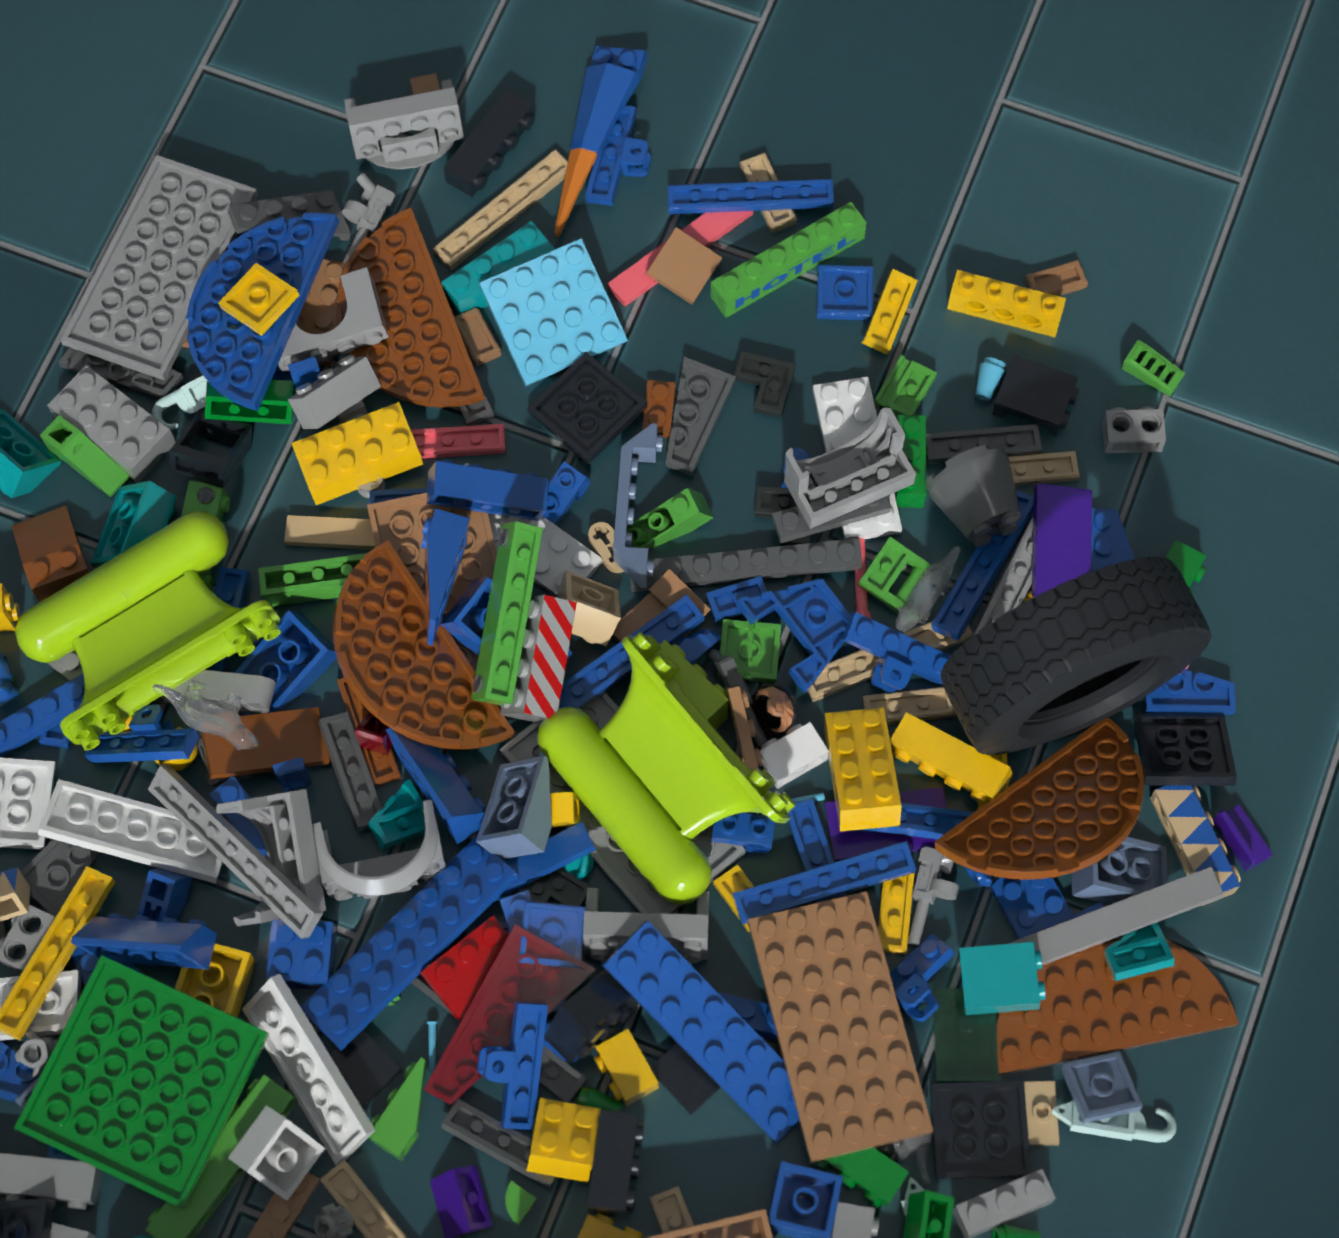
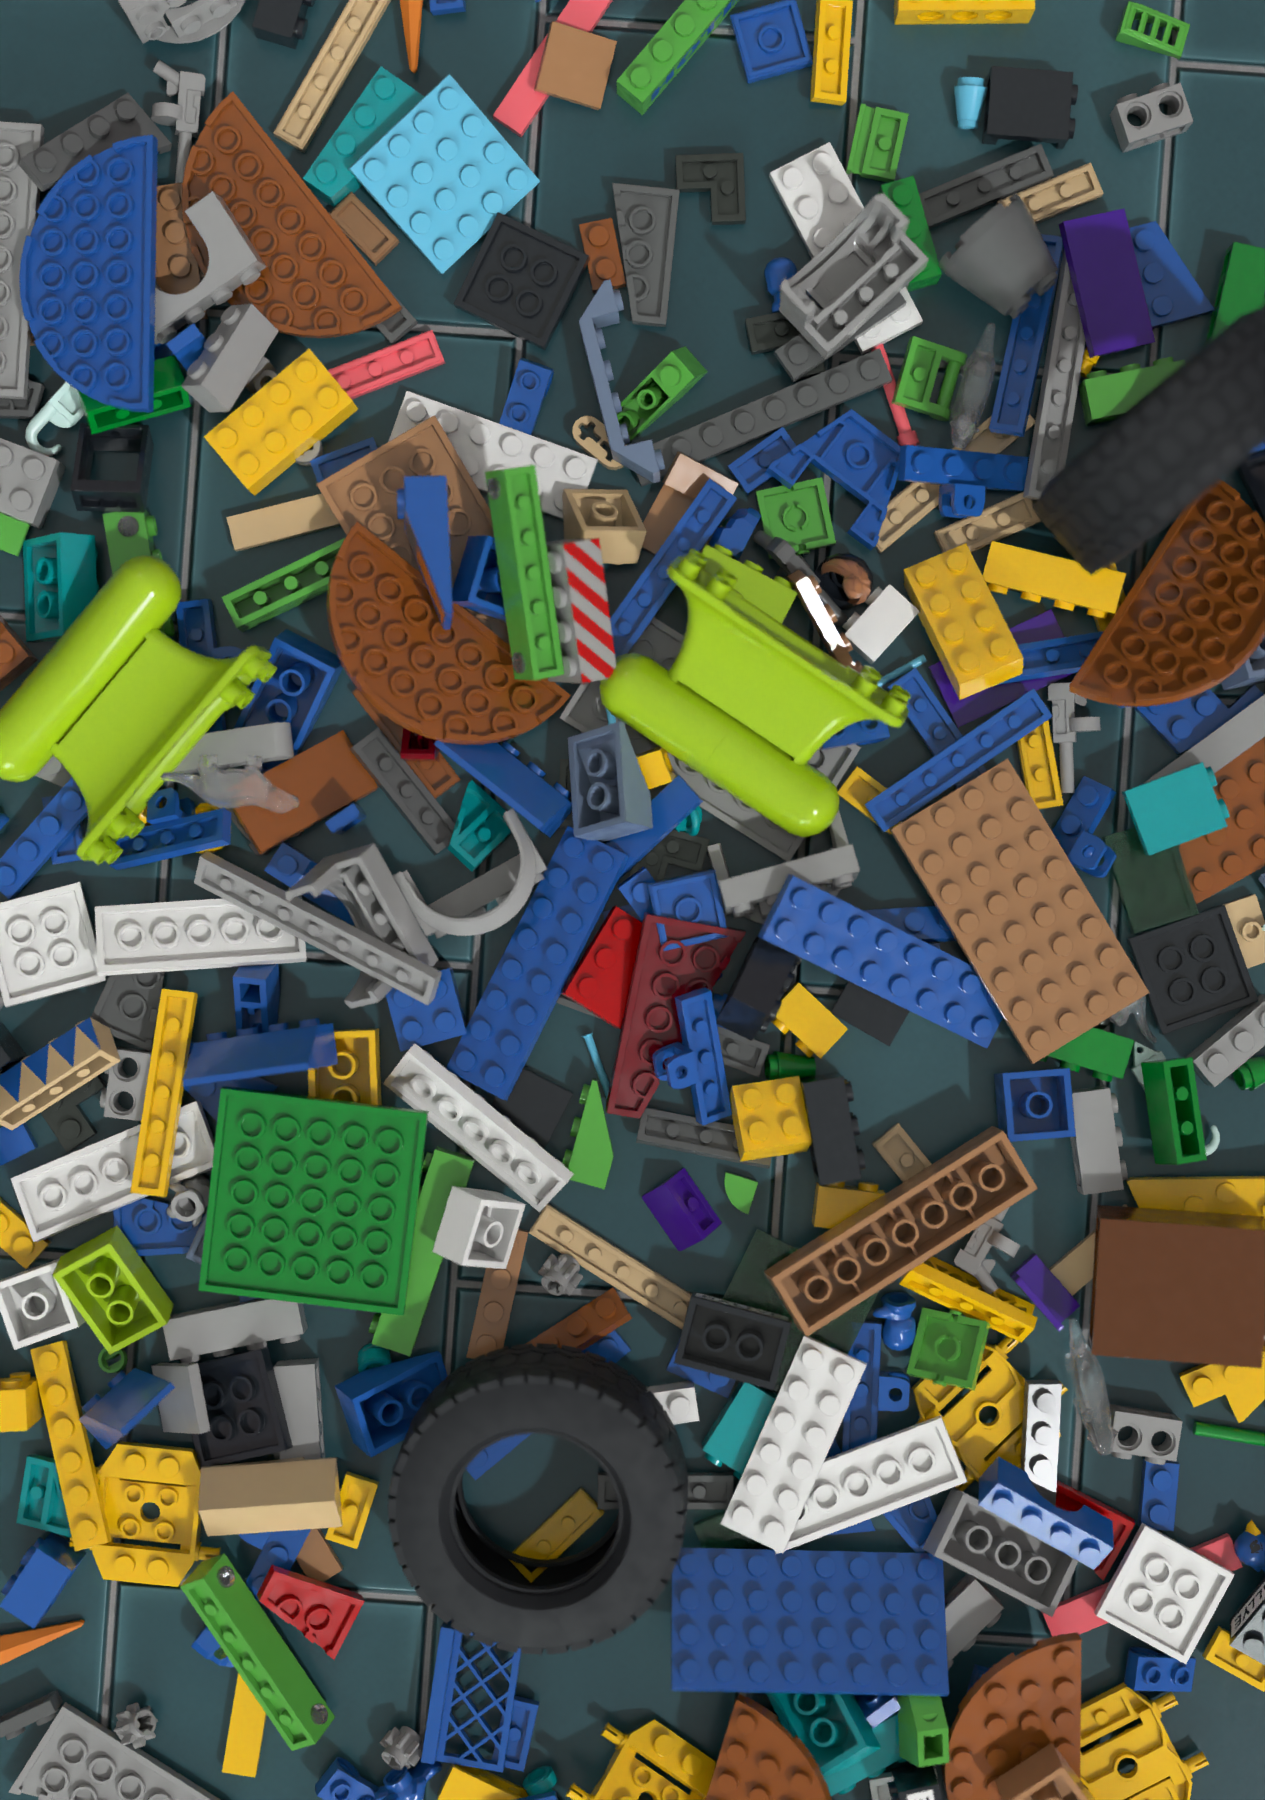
camera: 20 degrees left, 20 degrees up
(258, 299) = (103, 274): yellow plate -> none
(487, 490) = (447, 426): blue brick -> none

